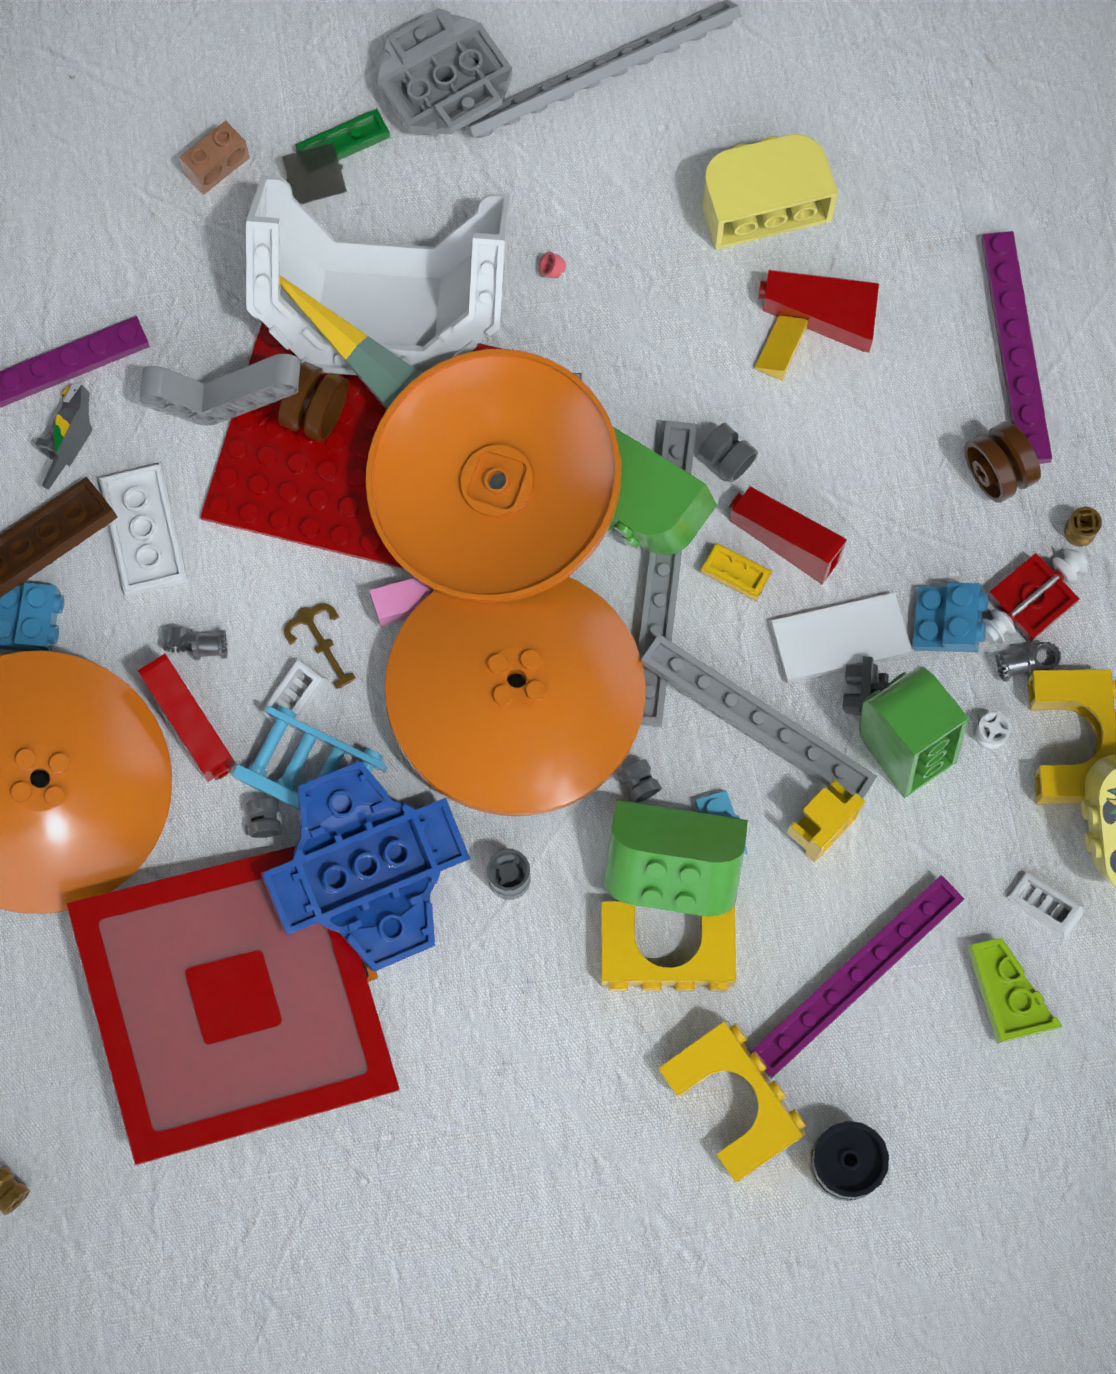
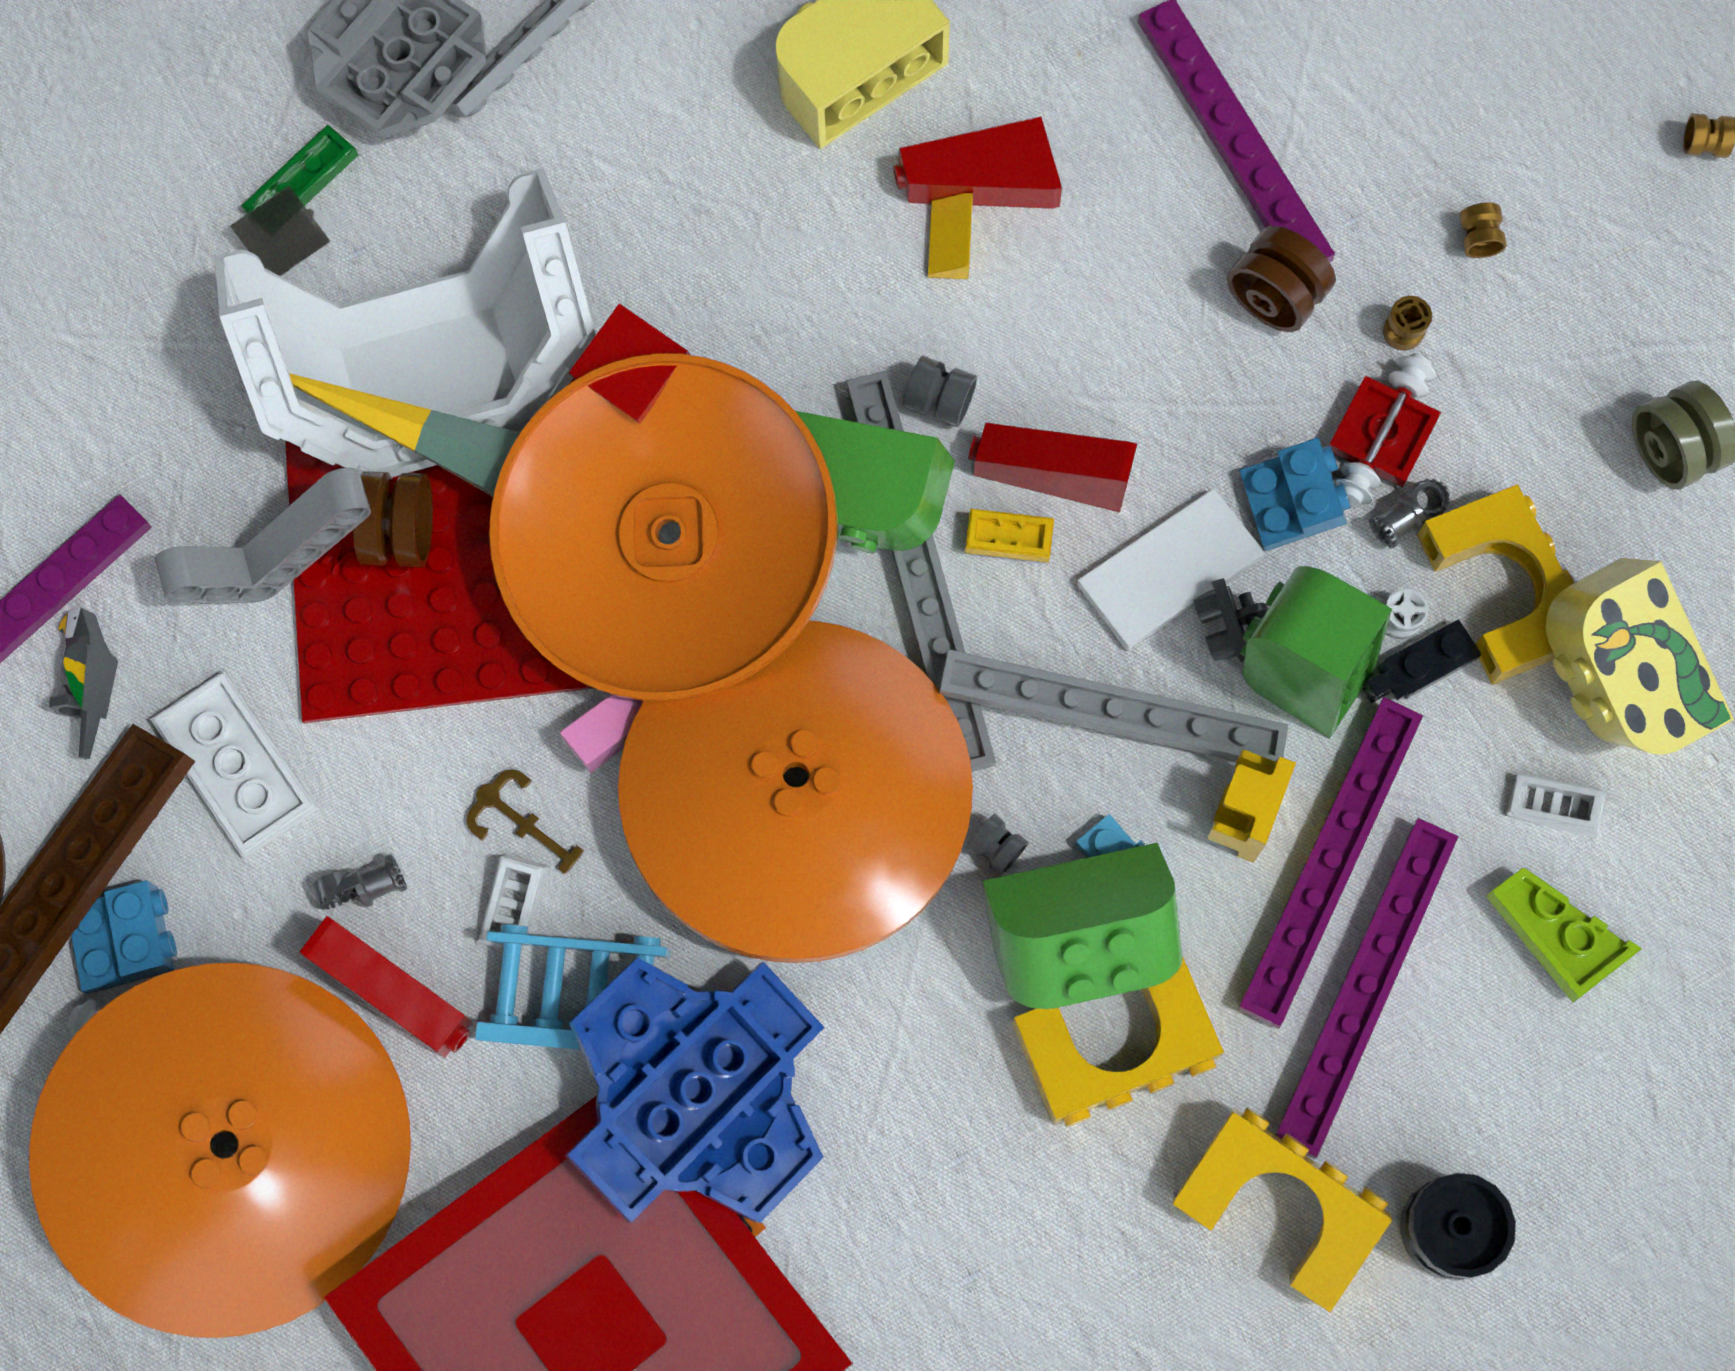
camera: 20 degrees left, 0 degrees up
(214, 157) = (143, 257): nougat brick -> none
(263, 817) = (536, 1078): dark grey wheel -> none
(509, 874) = (882, 1027): dark grey wheel -> none
(513, 334) = (621, 338): none -> red tile
(552, 265) = (624, 246): coral hinge -> none
(867, 882) = (1330, 863): none -> magenta plate
(992, 771) = (1424, 663): none -> black hinge

